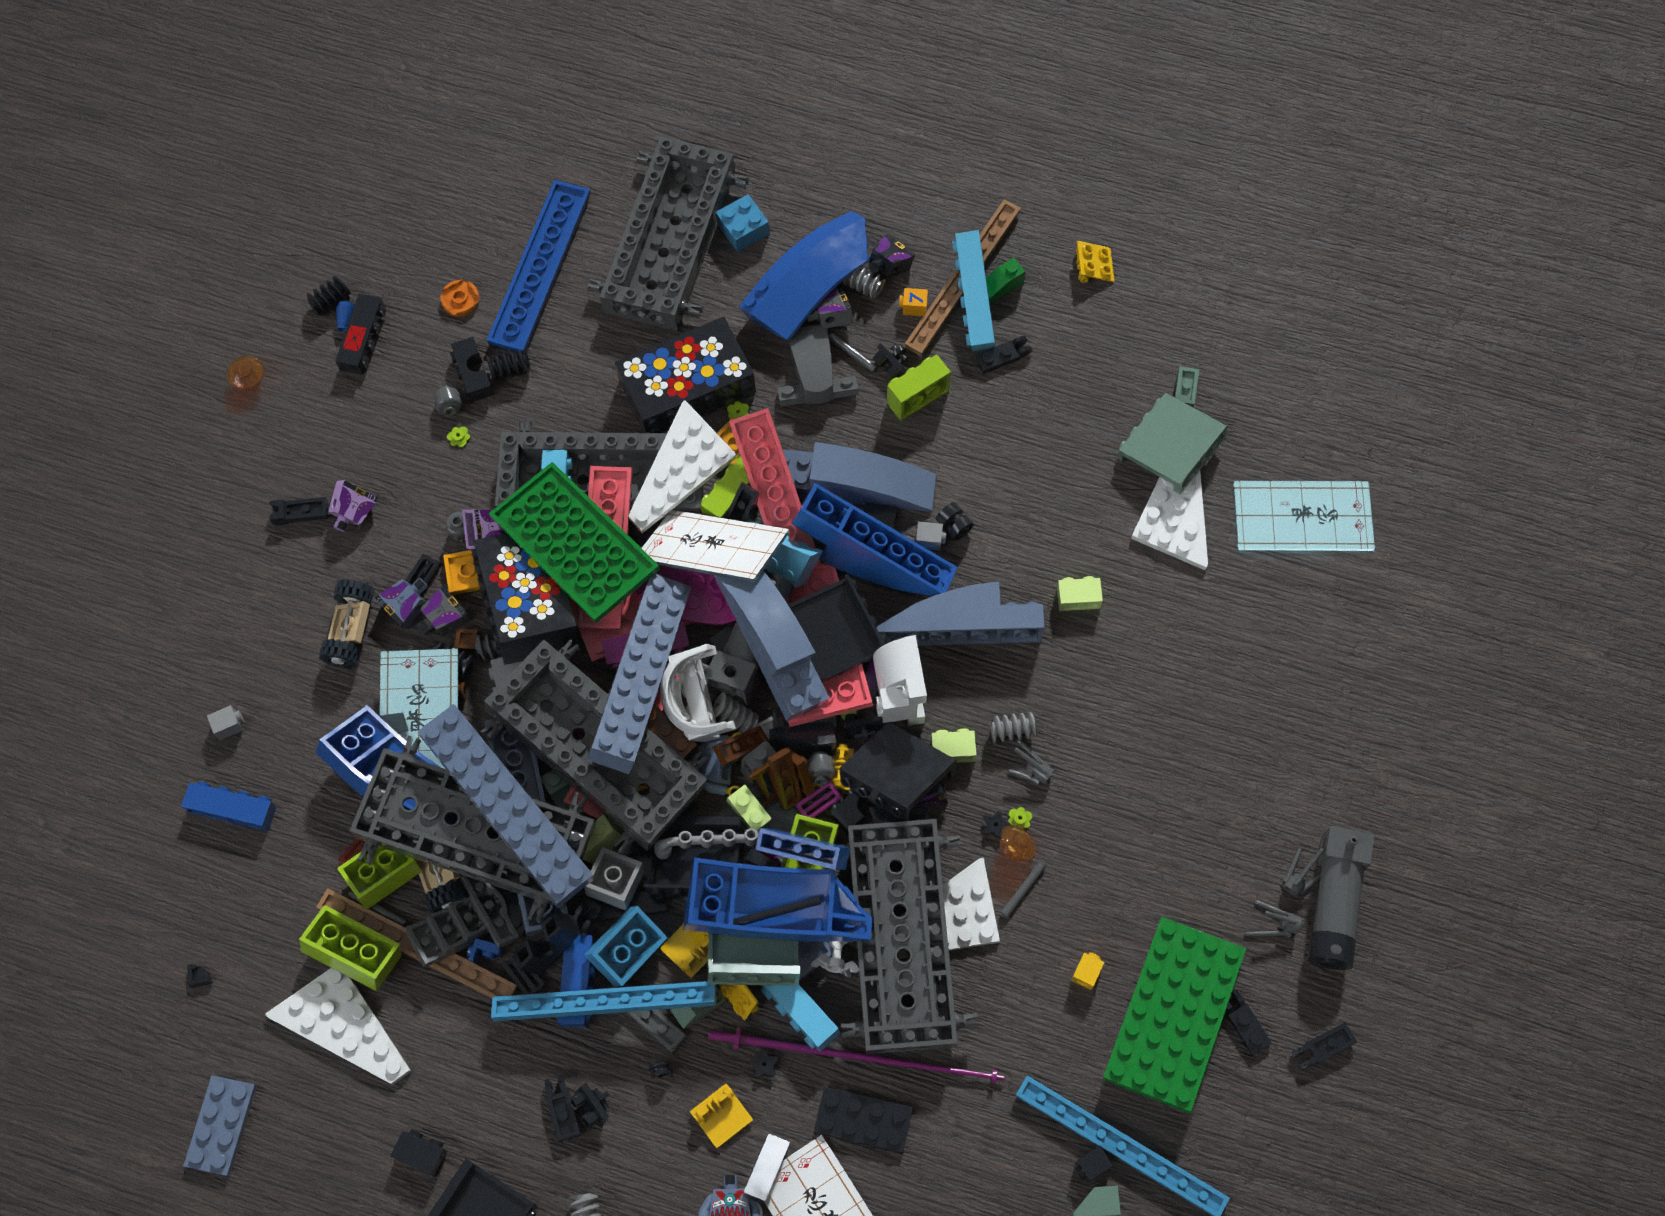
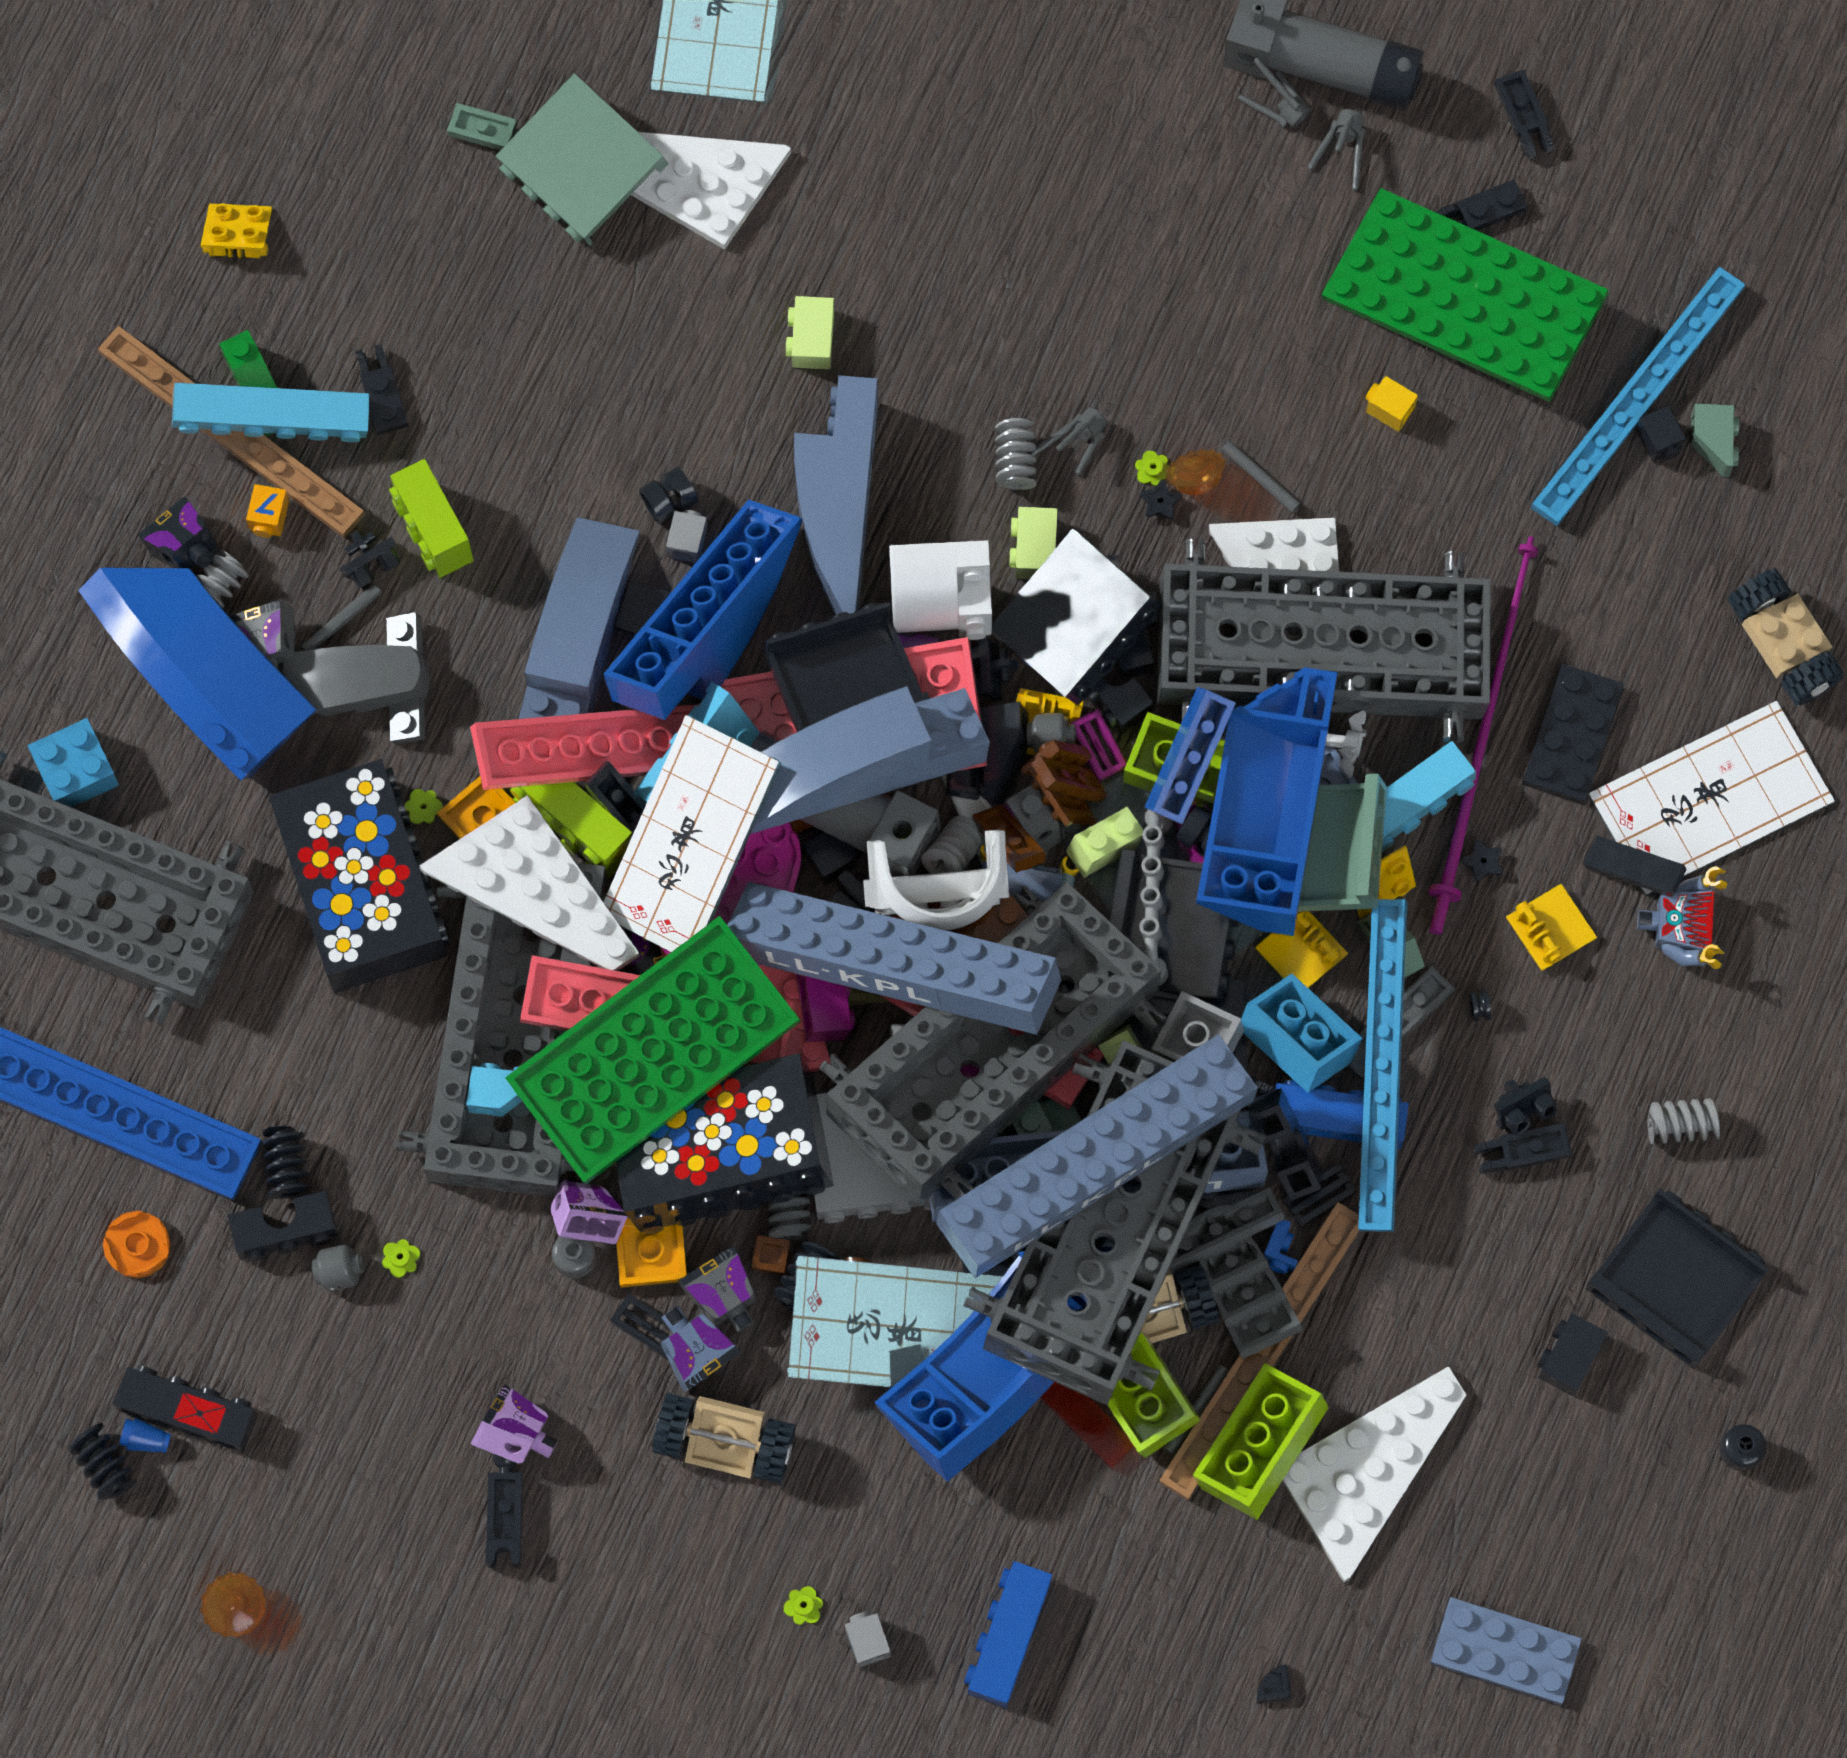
camera: 85 degrees left, 5 degrees up
(252, 690) = (810, 1612): none -> lime plant
(777, 911) = (1279, 796): black bar -> none

